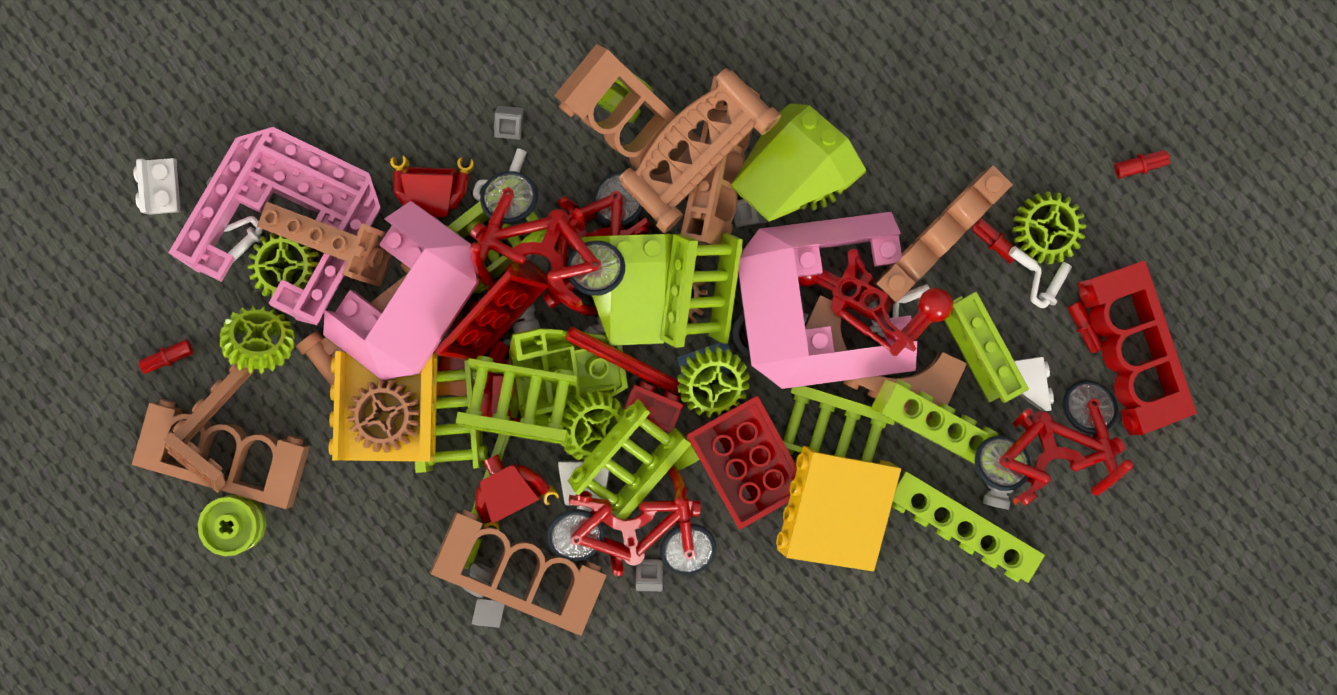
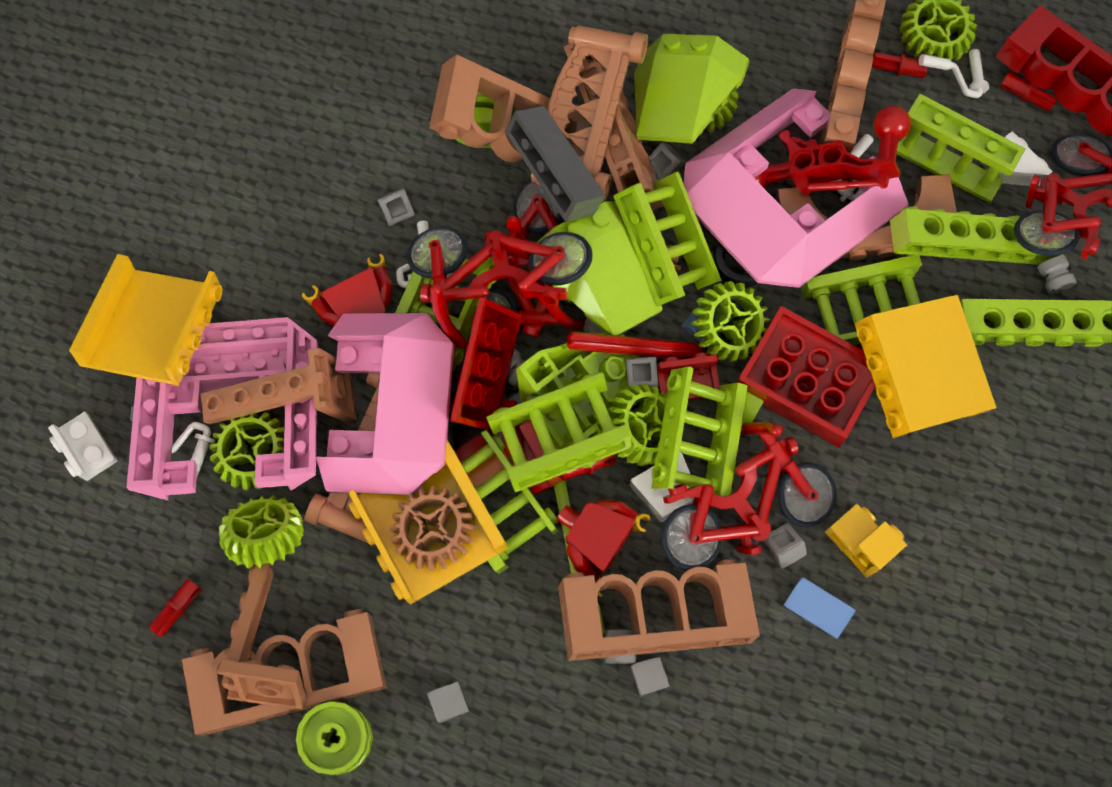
camera: 25 degrees left, 15 degrees down
(255, 114) = (145, 323): none -> yellow panel
(329, 544) = (447, 702): none -> light grey slope
(618, 384) = (642, 371): none -> light grey slope
(638, 184) = (554, 163): none -> dark grey brick
(644, 636) = (819, 607): none -> medium blue slope
(707, 612) = (865, 542): none -> yellow brick

